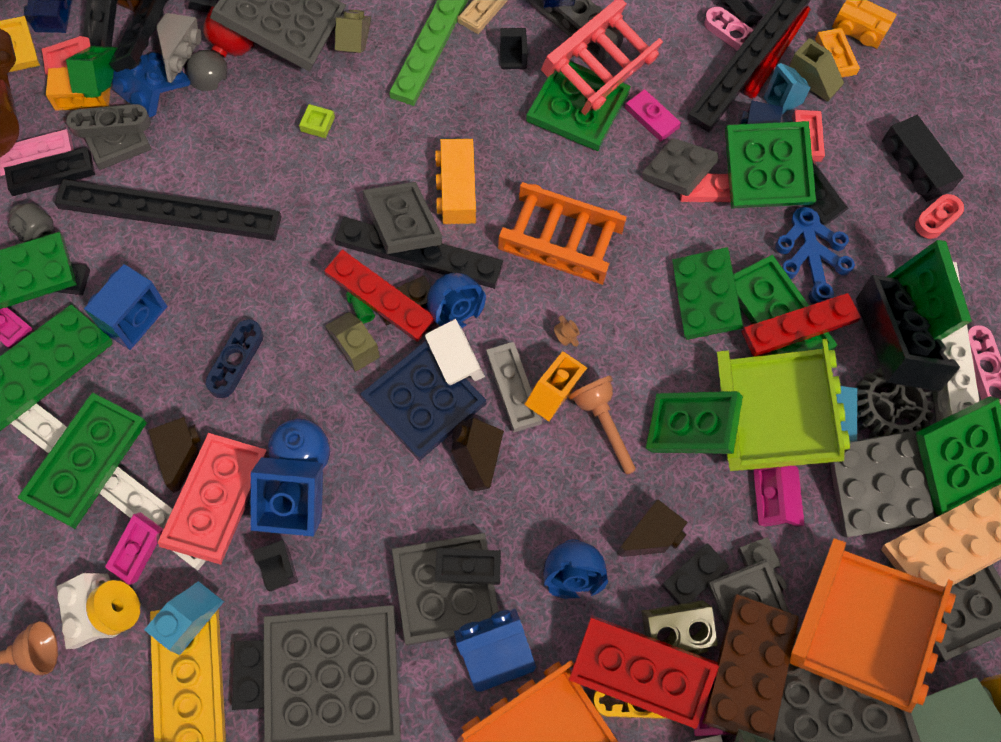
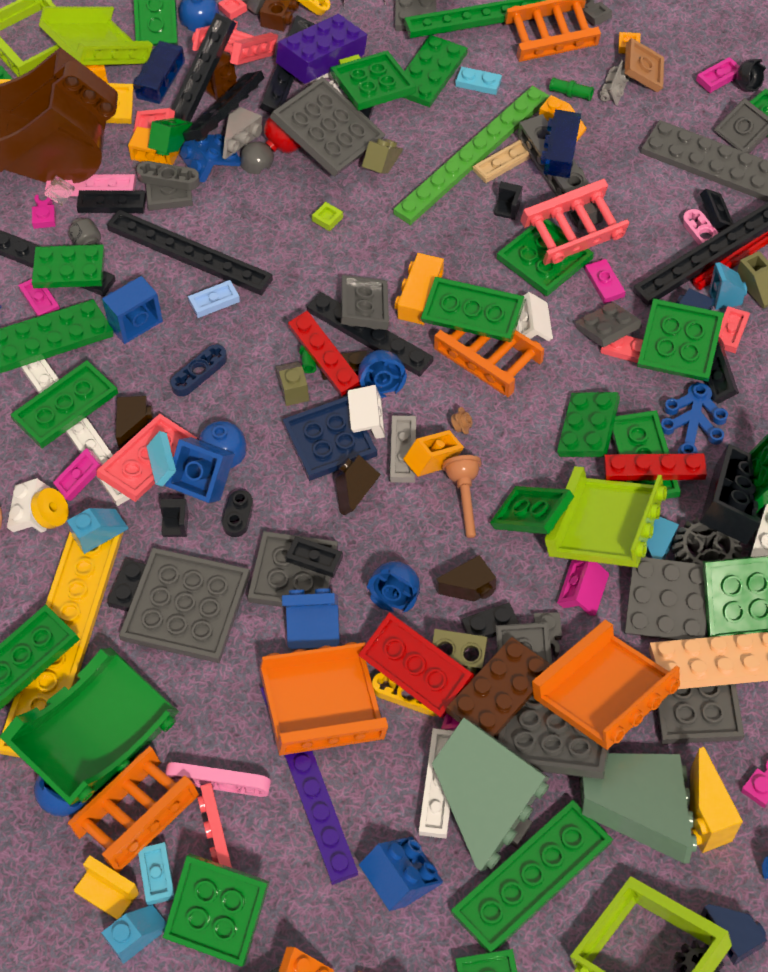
camera: 25 degrees right, 10 degrees down
(220, 261) = (213, 299): none -> light blue plate
(234, 499) = (161, 458): none -> medium azure tile
(350, 530) = (237, 511): none -> black plate
(532, 192) = (473, 309): none -> green plate
(592, 181) = (535, 318): none -> white panel

